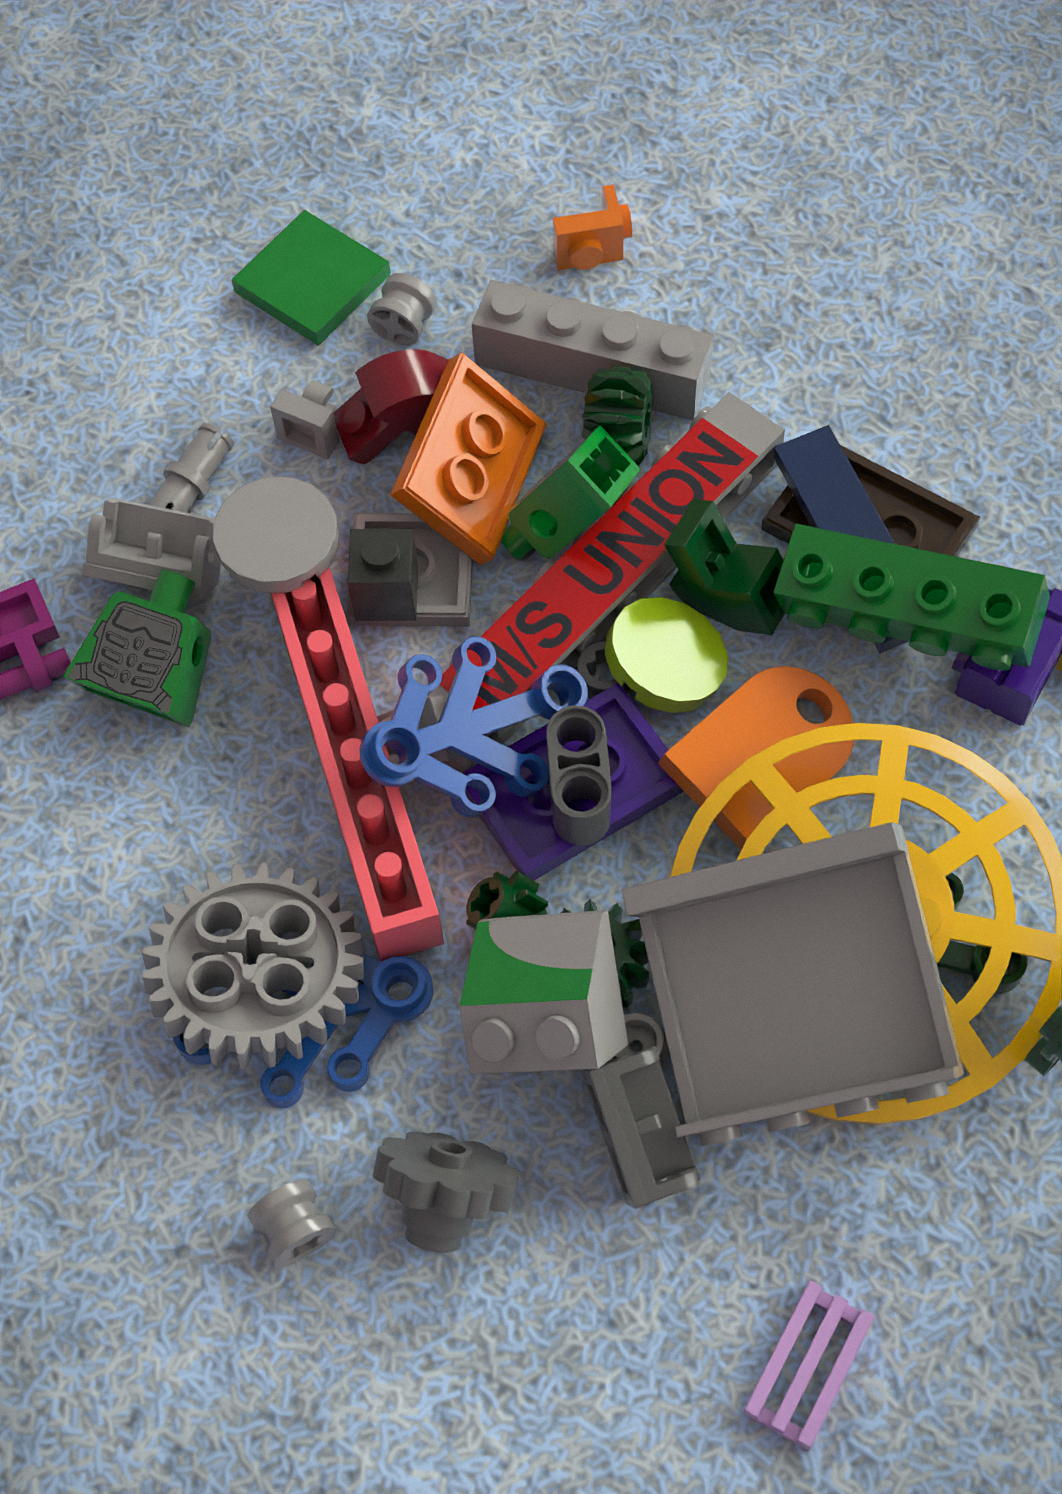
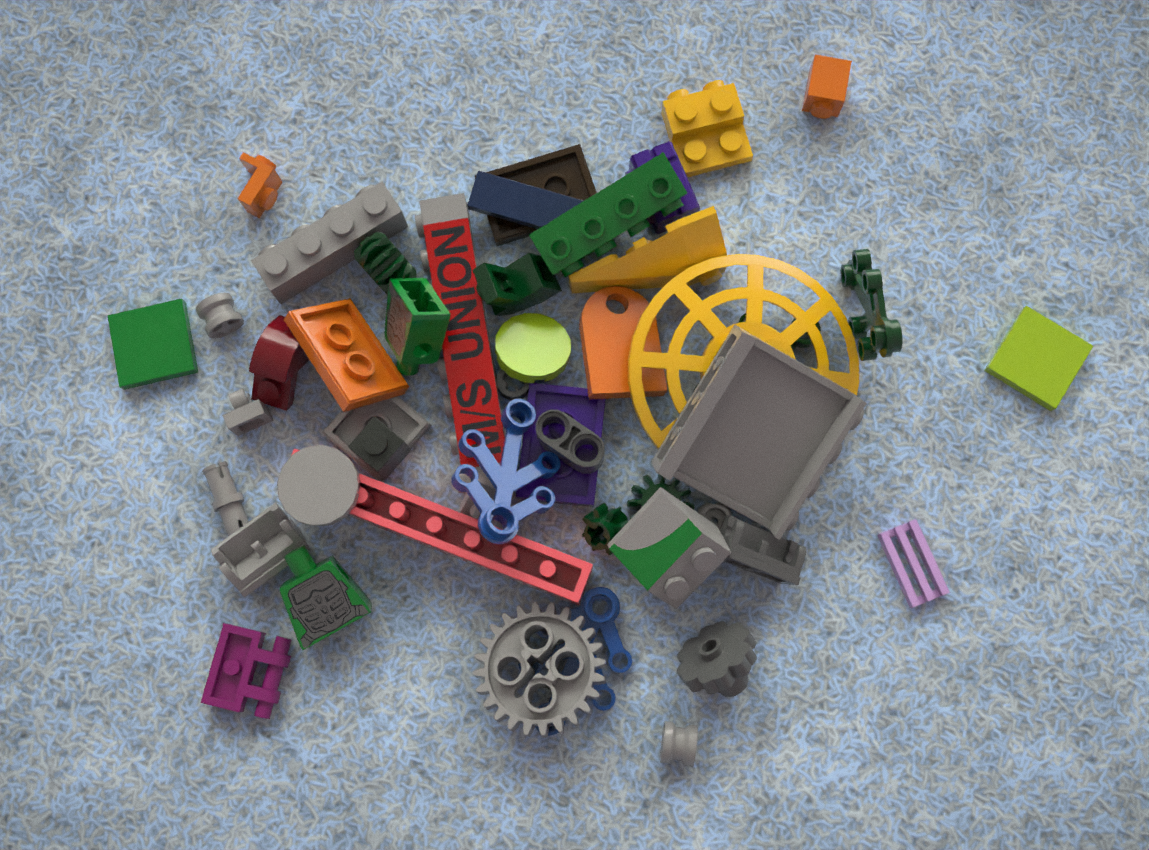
camera: 50 degrees left, 15 degrees up
(957, 704) = (658, 261): none -> yellow wedge

